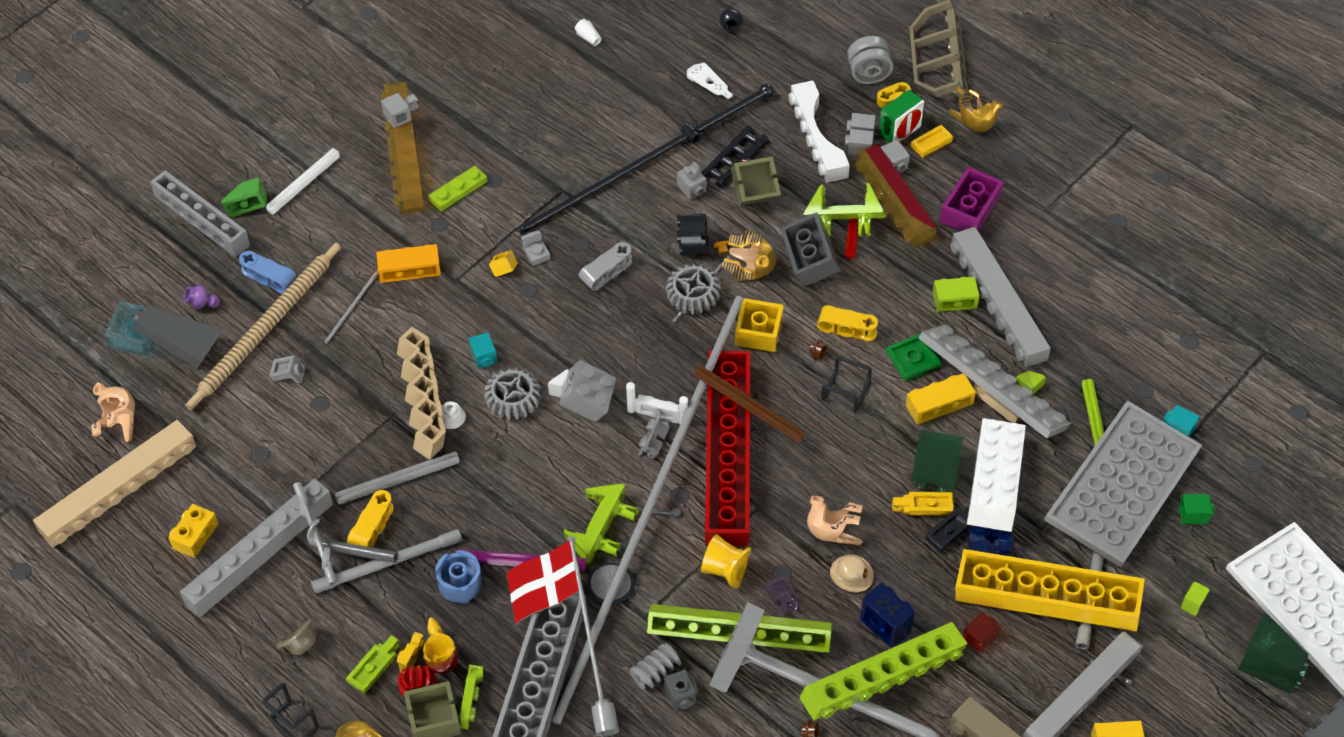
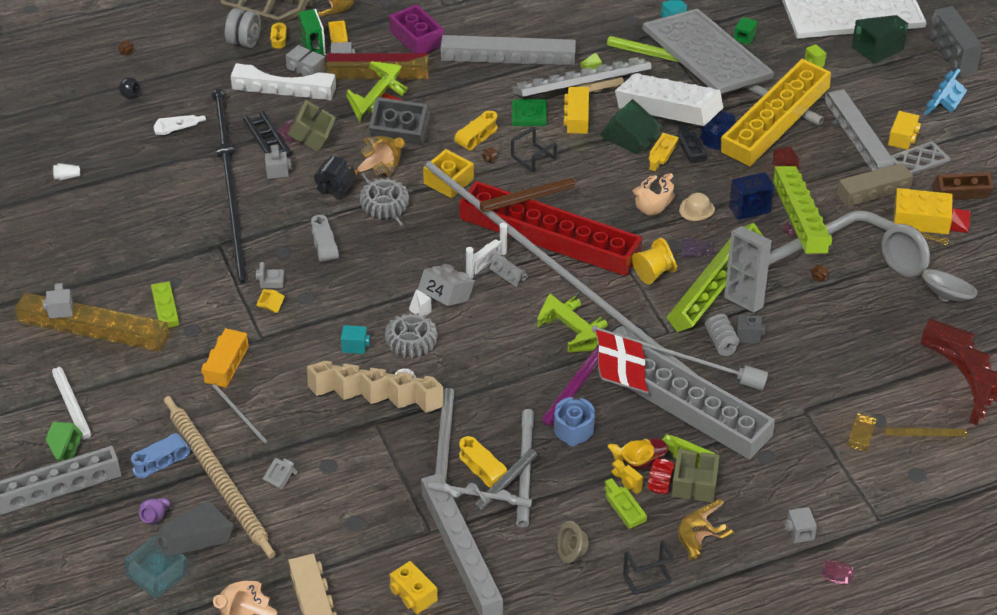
camera: 65 degrees left, 10 degrees down
(955, 294) = (490, 70): lime brick -> none

